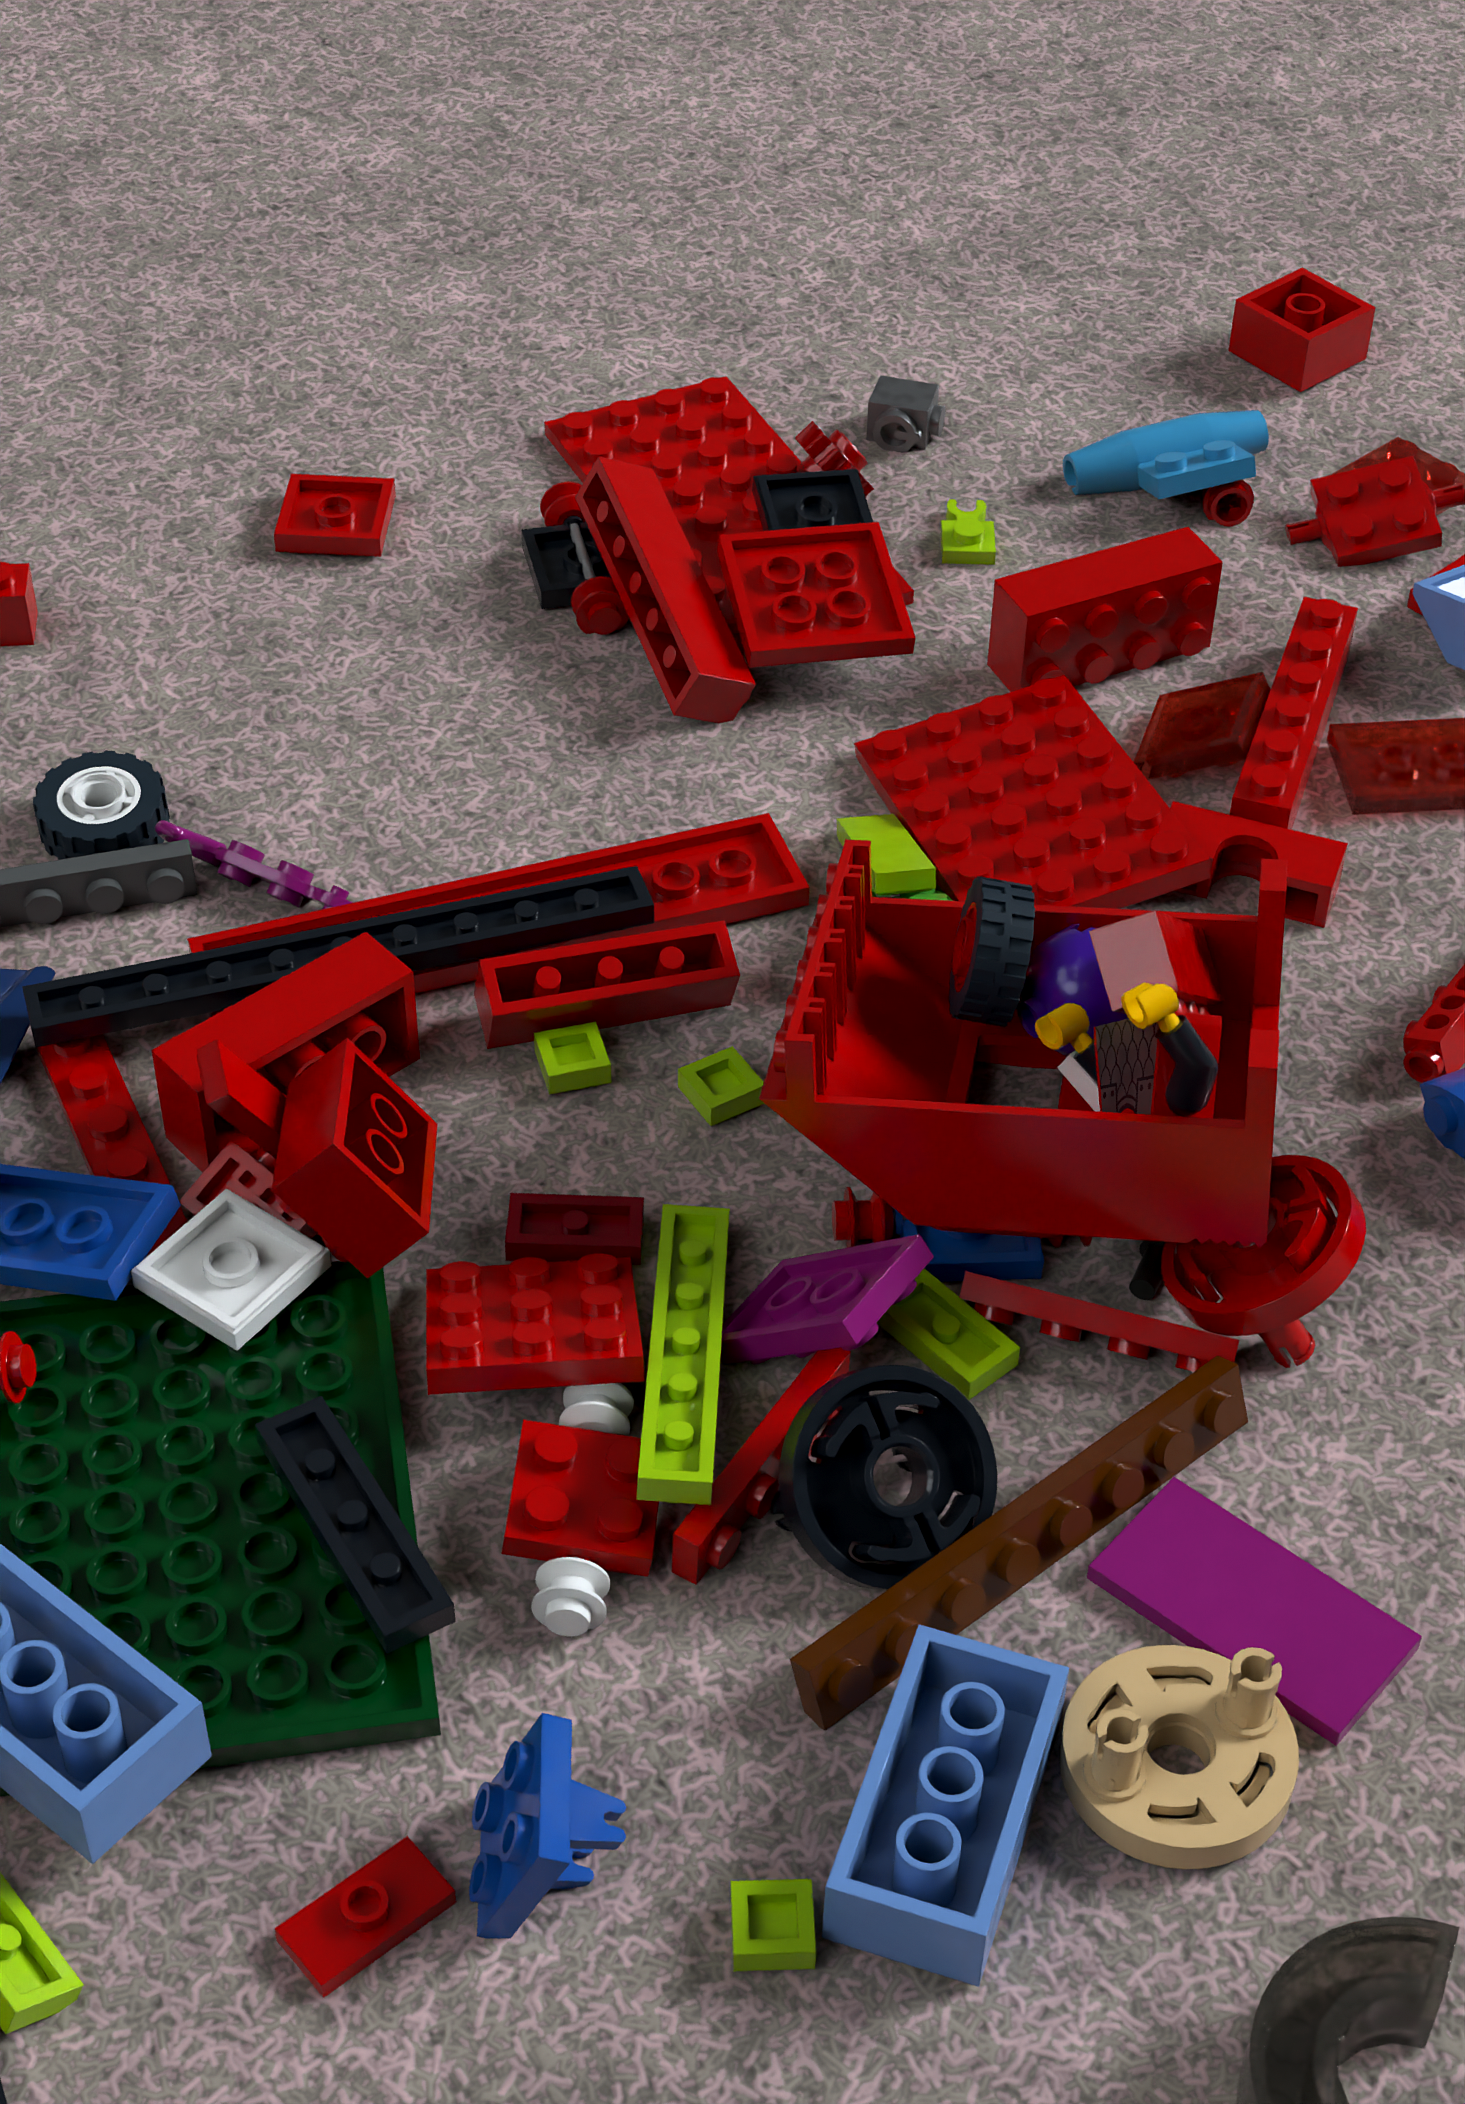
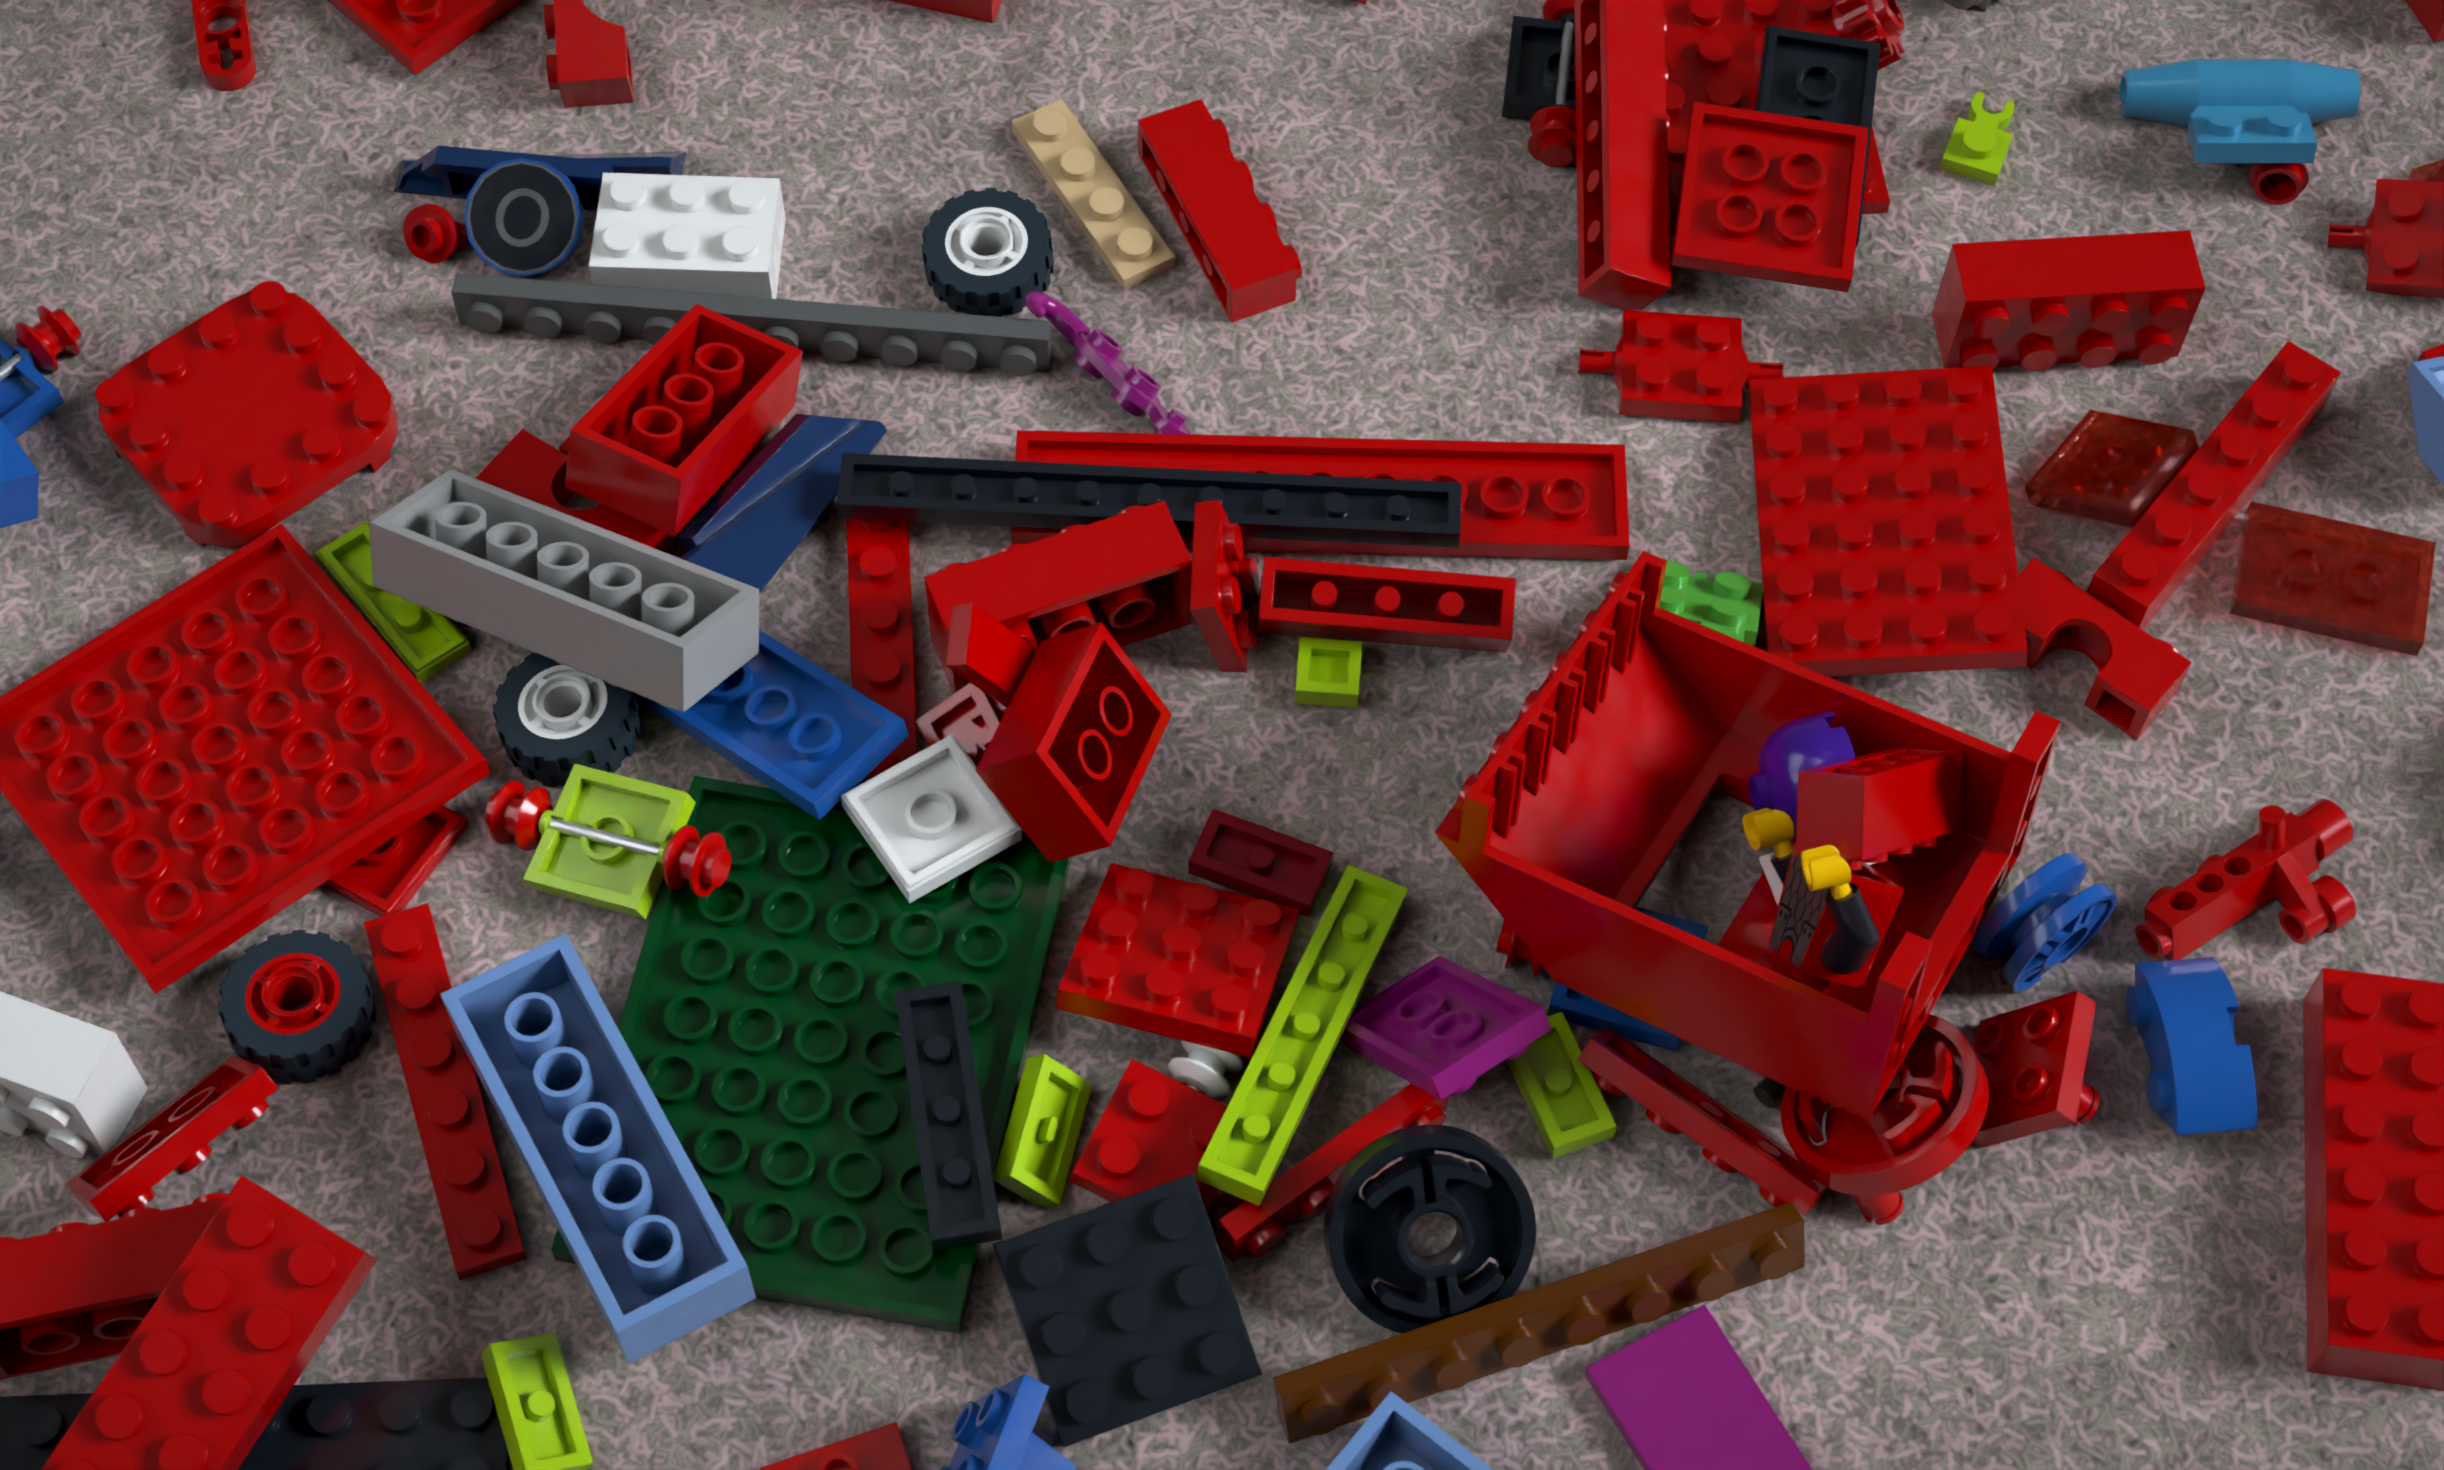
camera: 20 degrees right, 15 degrees up
(185, 747) = (1093, 194): none -> tan plate
(311, 728) = (1218, 210): none -> red brick
(447, 1003) = (1222, 587): none -> red plate
(455, 1518) = (1042, 1131): none -> lime plate
(615, 1639) = (1127, 1309): none -> black plate
(720, 1085) = (1454, 745): lime plate -> none
(785, 750) = (1679, 366): none -> red plate
(895, 857) = (1718, 532): lime tile -> none
(991, 951) = (1740, 716): black wheel -> none
(1327, 1066) = (2044, 921): none -> blue wheel
(1391, 1178) = (2036, 1068): none -> red plate

